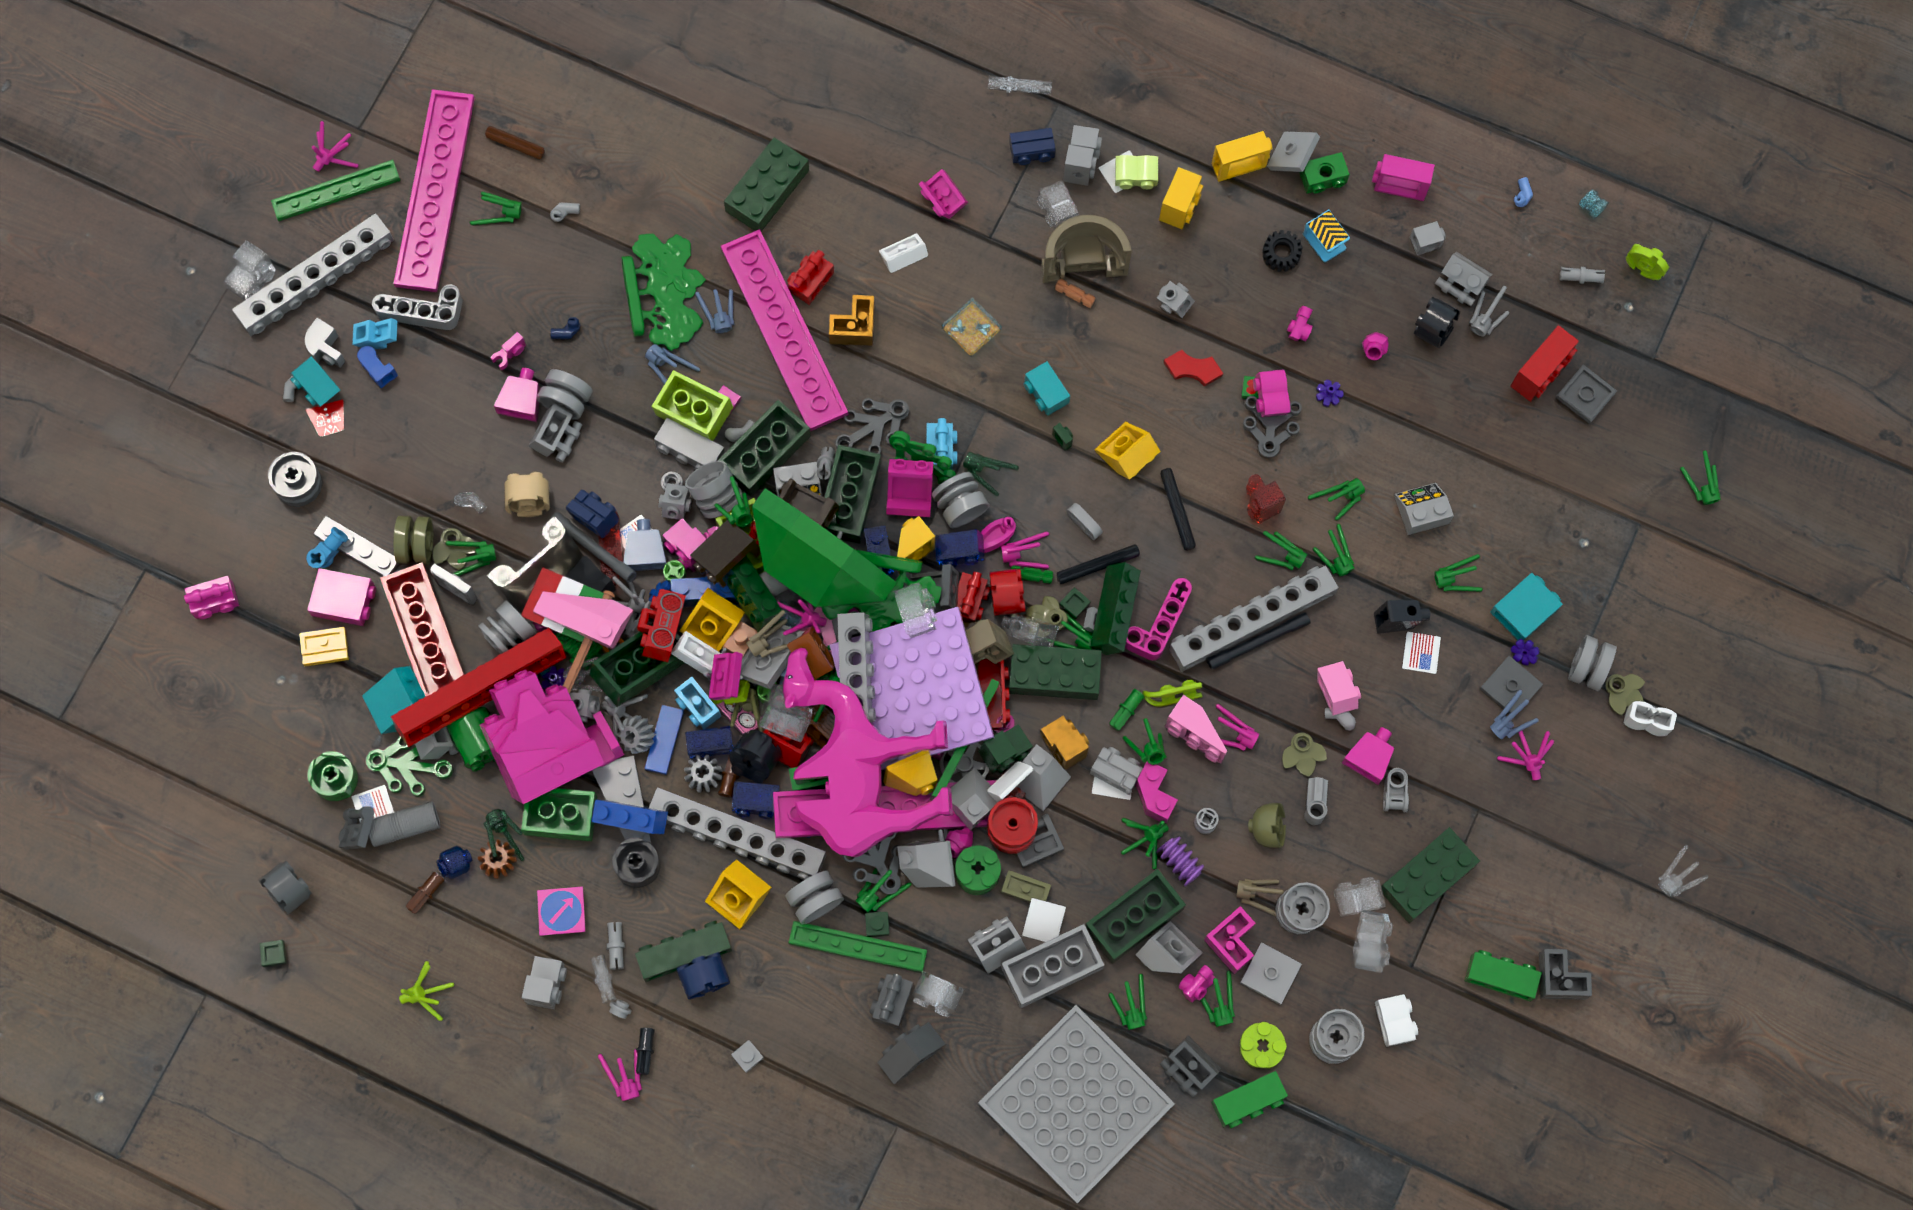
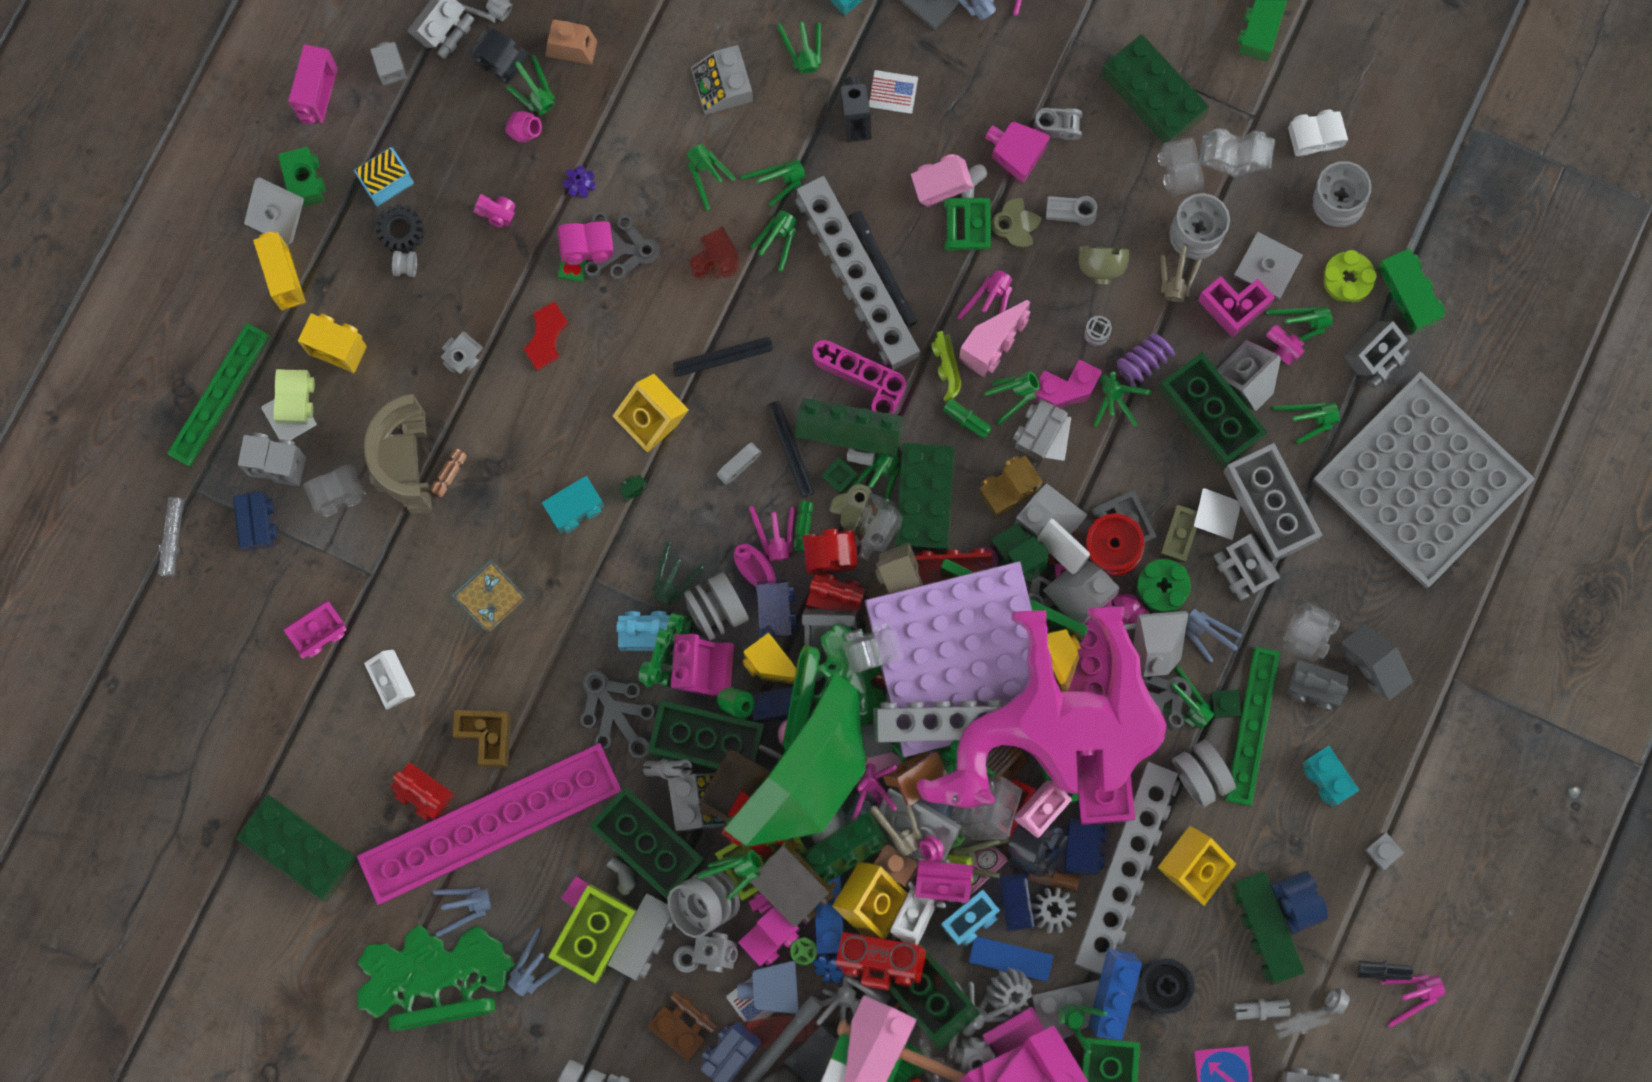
camera: 85 degrees left, 5 degrees up
(612, 476) = (677, 1033): none -> reddish brown plate
(612, 784) = (1074, 1017): none -> green plant
(751, 663) = (932, 848): none -> dark pink plate
(782, 755) = (1042, 808): none -> bright pink slope
(812, 1008) = (1330, 777): none -> teal brick
(878, 514) = (735, 702): none -> green brick
(945, 901) = (1199, 622): none -> sand blue plant
(1138, 117) = (218, 395): none -> green tile
(1252, 254) = (404, 263): none -> light grey wheel
(1301, 719) = (976, 224): none -> green plate
(1399, 359) = (541, 100): none -> green plant
(1451, 378) = (569, 42): none -> nougat torso

